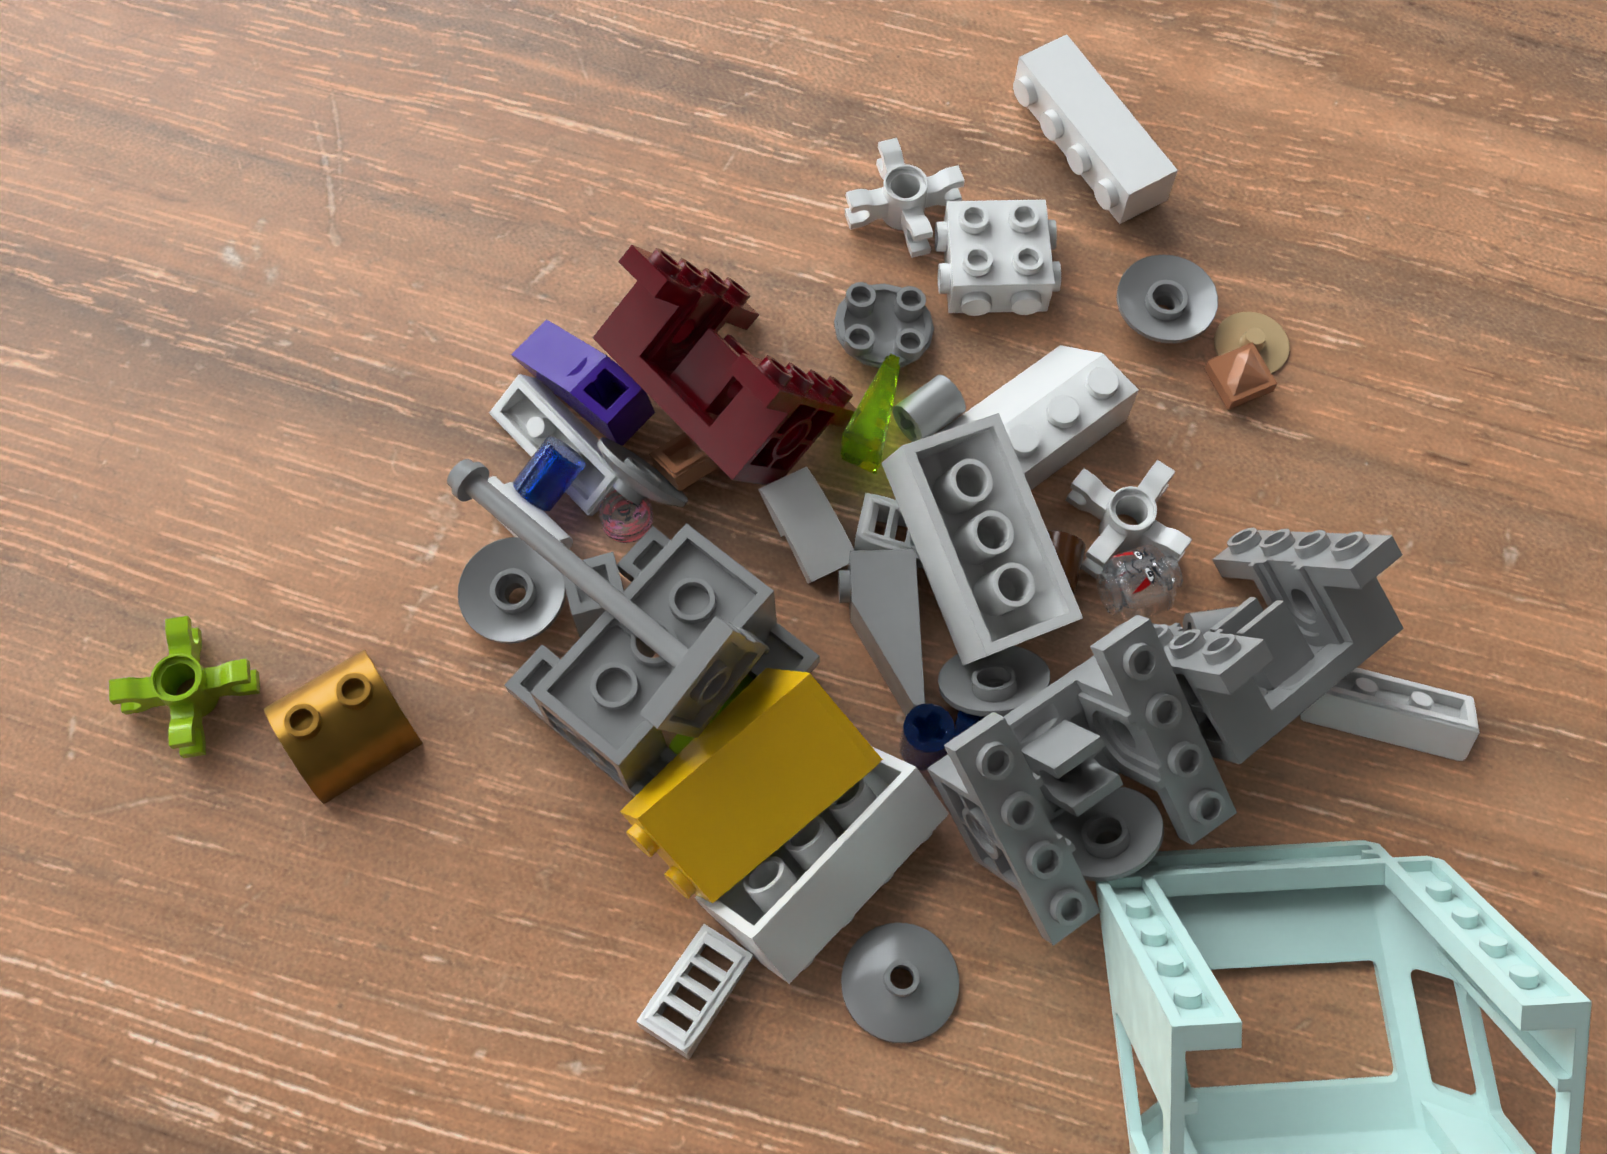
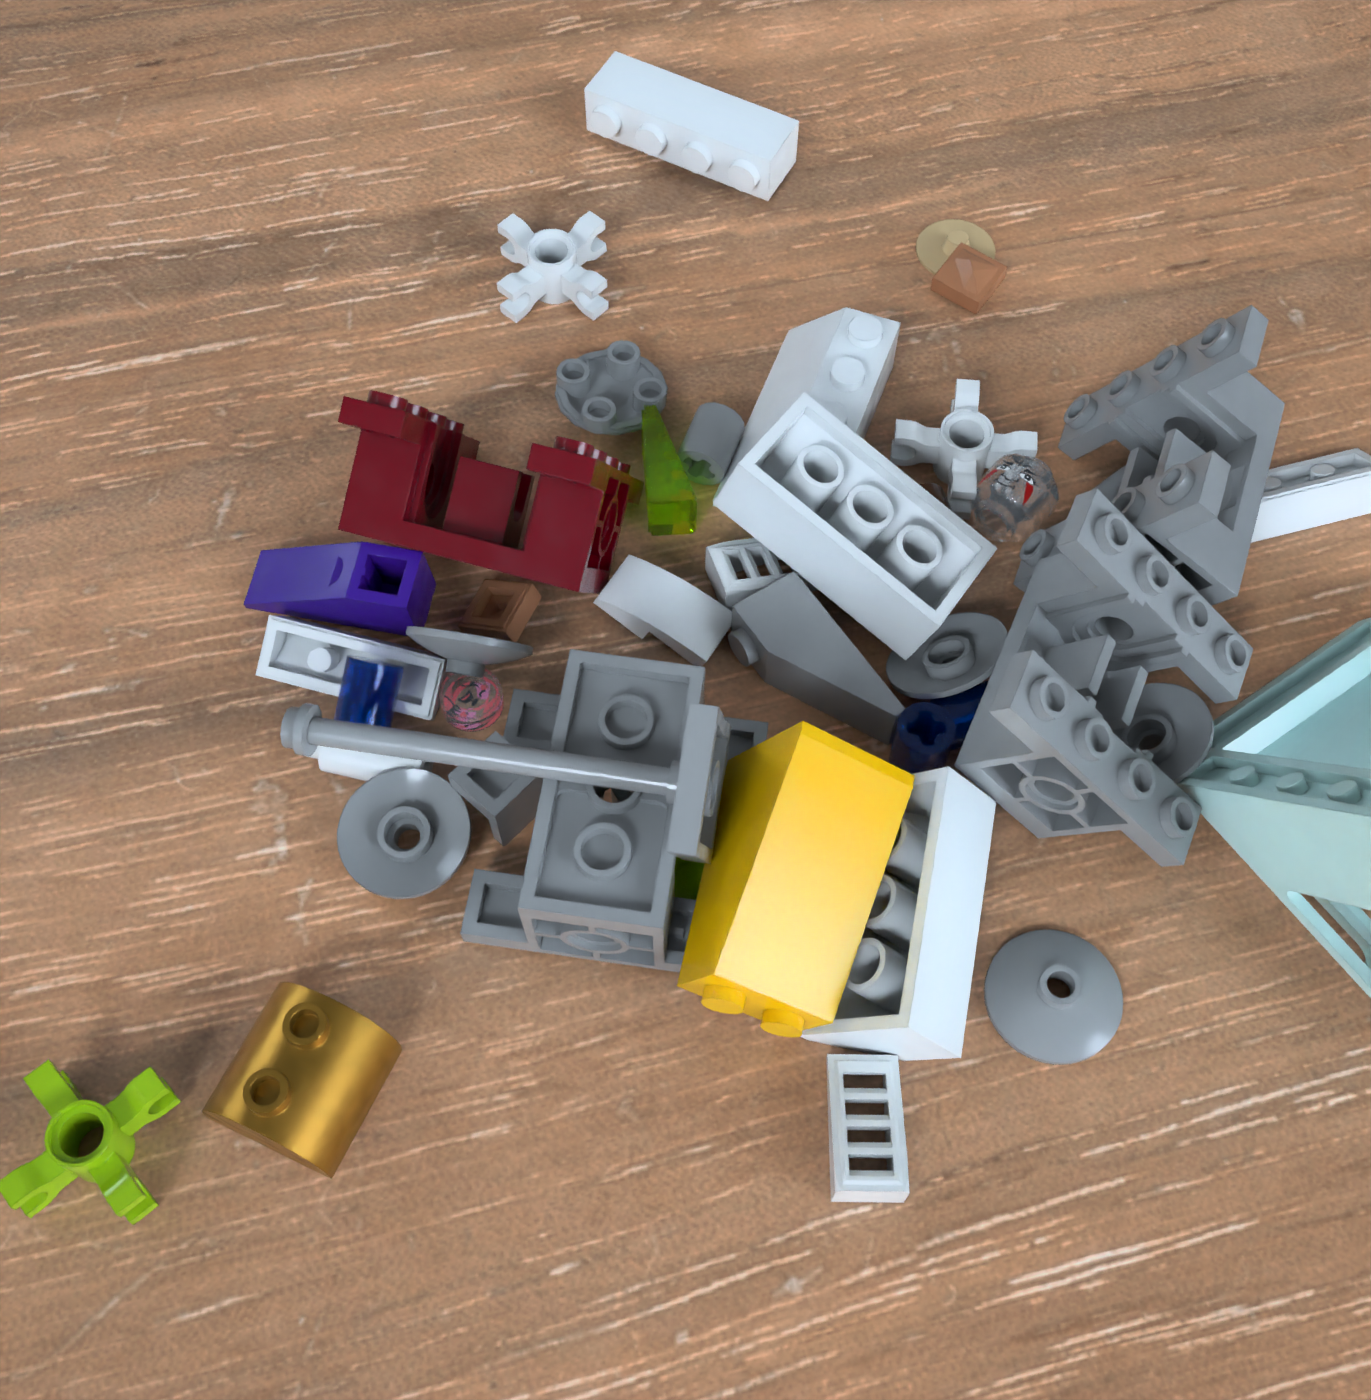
camera: 30 degrees left, 5 degrees down
(997, 256) = (678, 277): white brick -> none
(1172, 283) = (860, 241): light grey dish -> none

